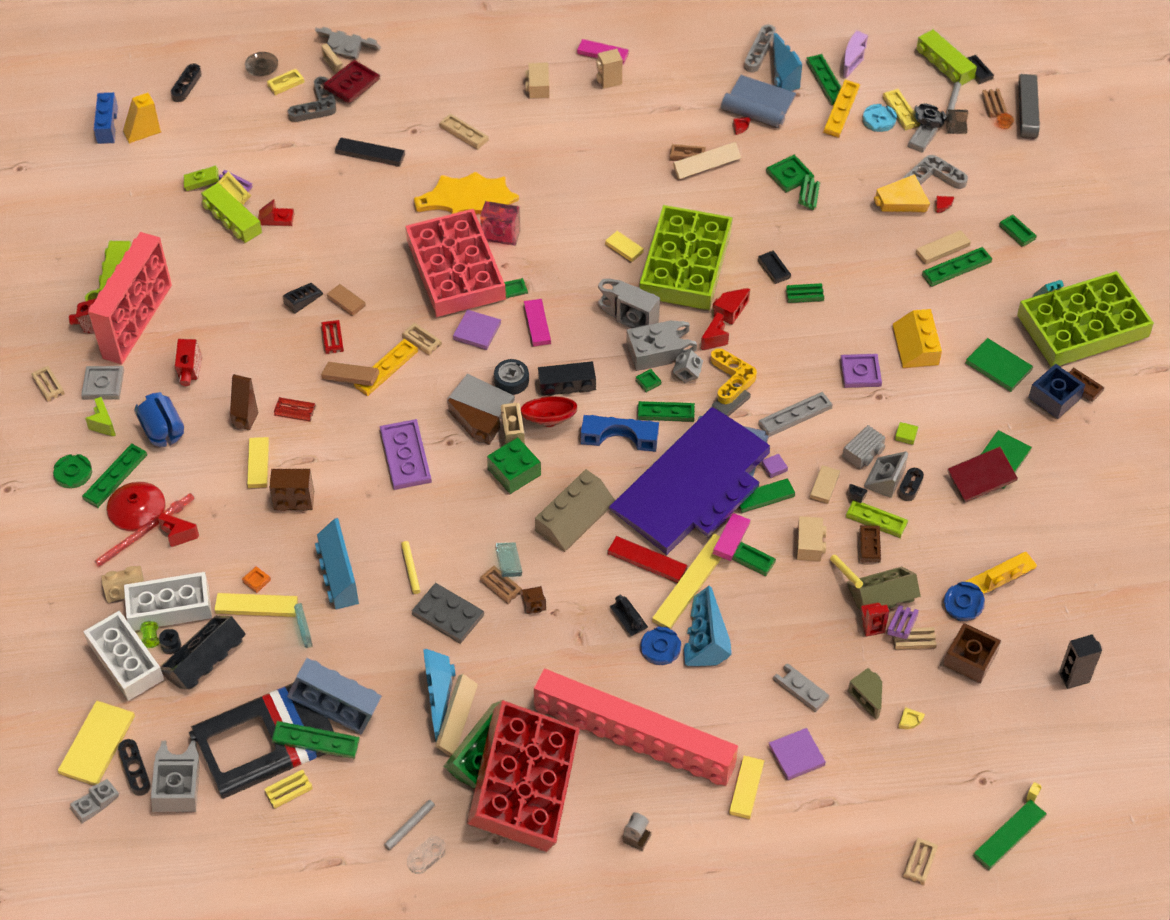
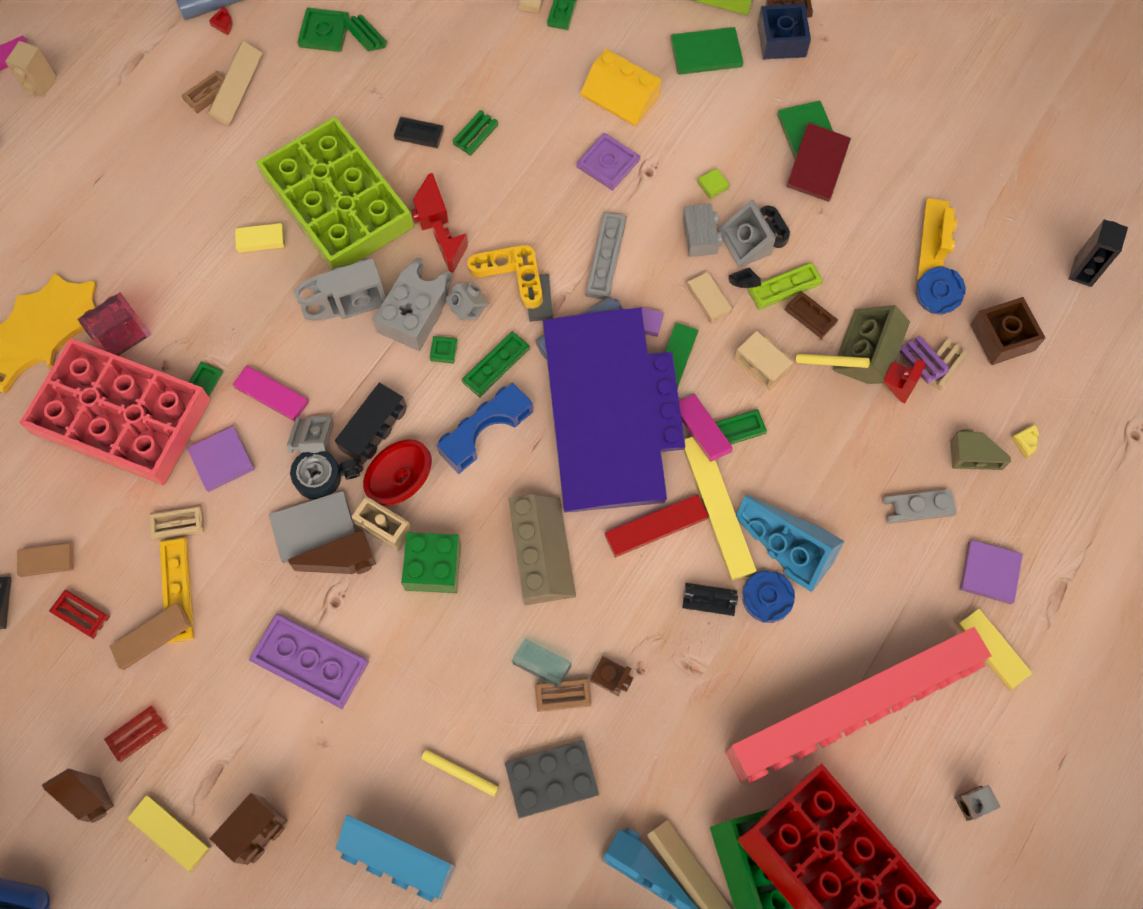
camera: 50 degrees left, 15 degrees up
(530, 355) = (310, 434): none -> light grey plate
(530, 390) = (350, 469): none -> black plate

